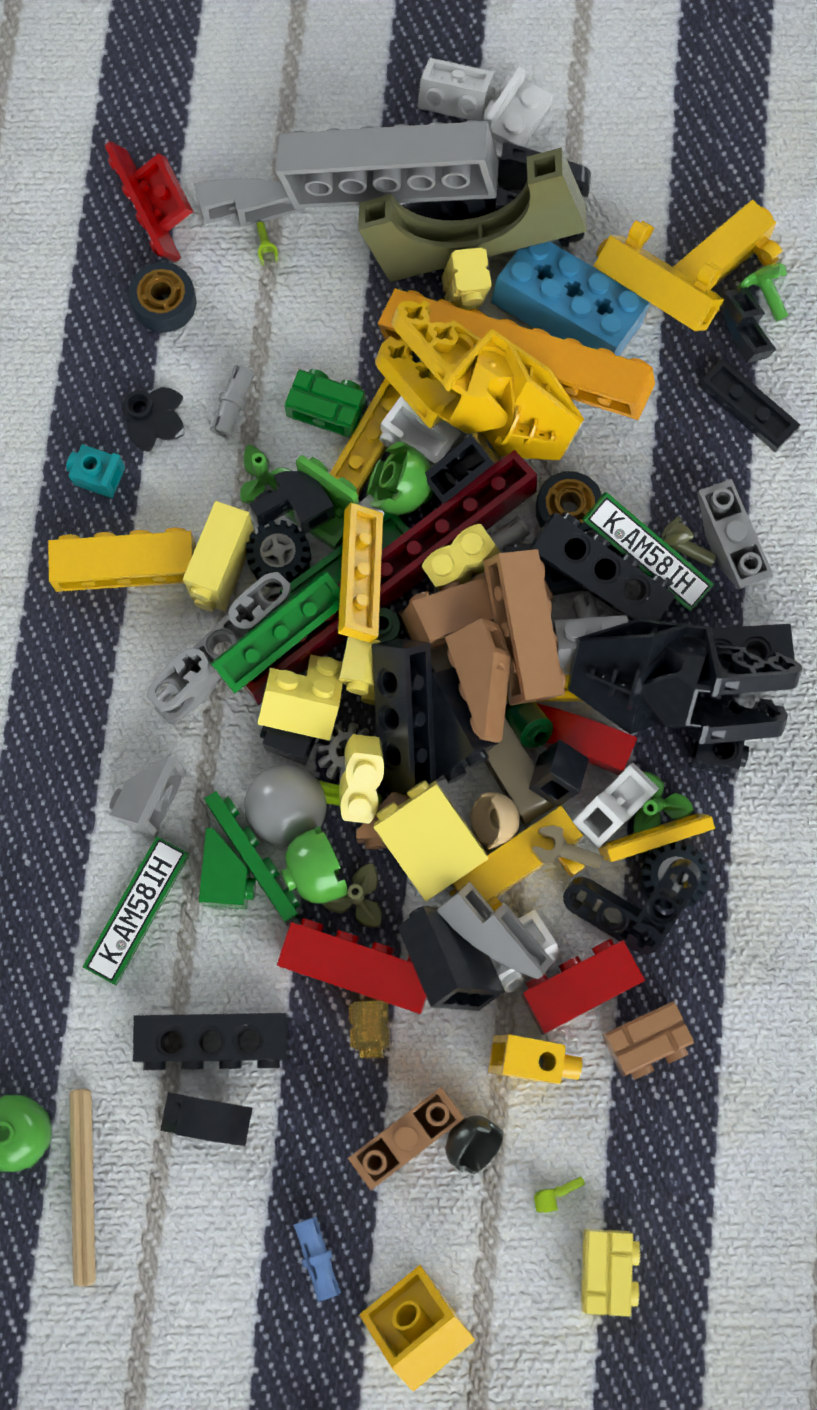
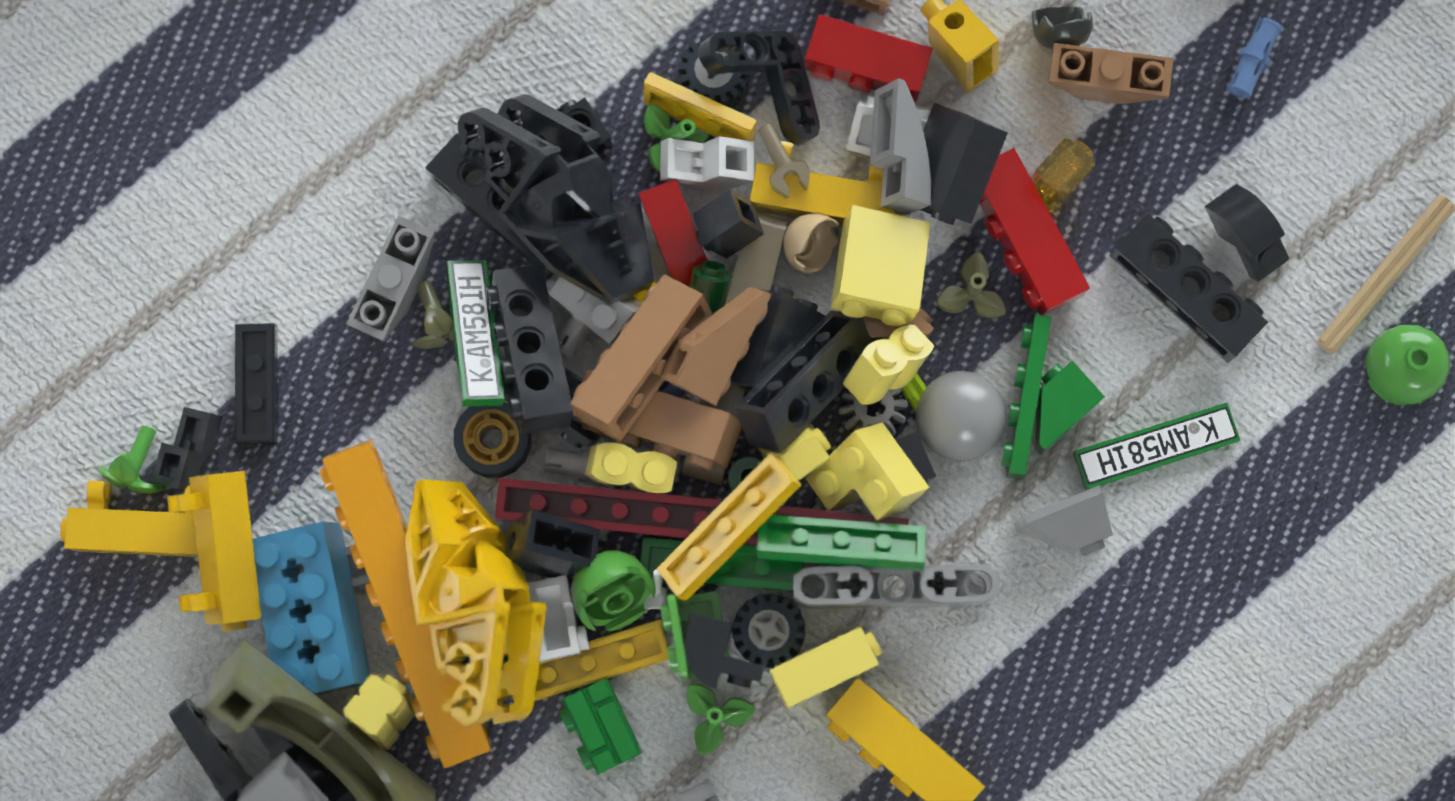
camera: 135 degrees left, 5 degrees up
(313, 868) = (991, 336): bright green cylinder -> none

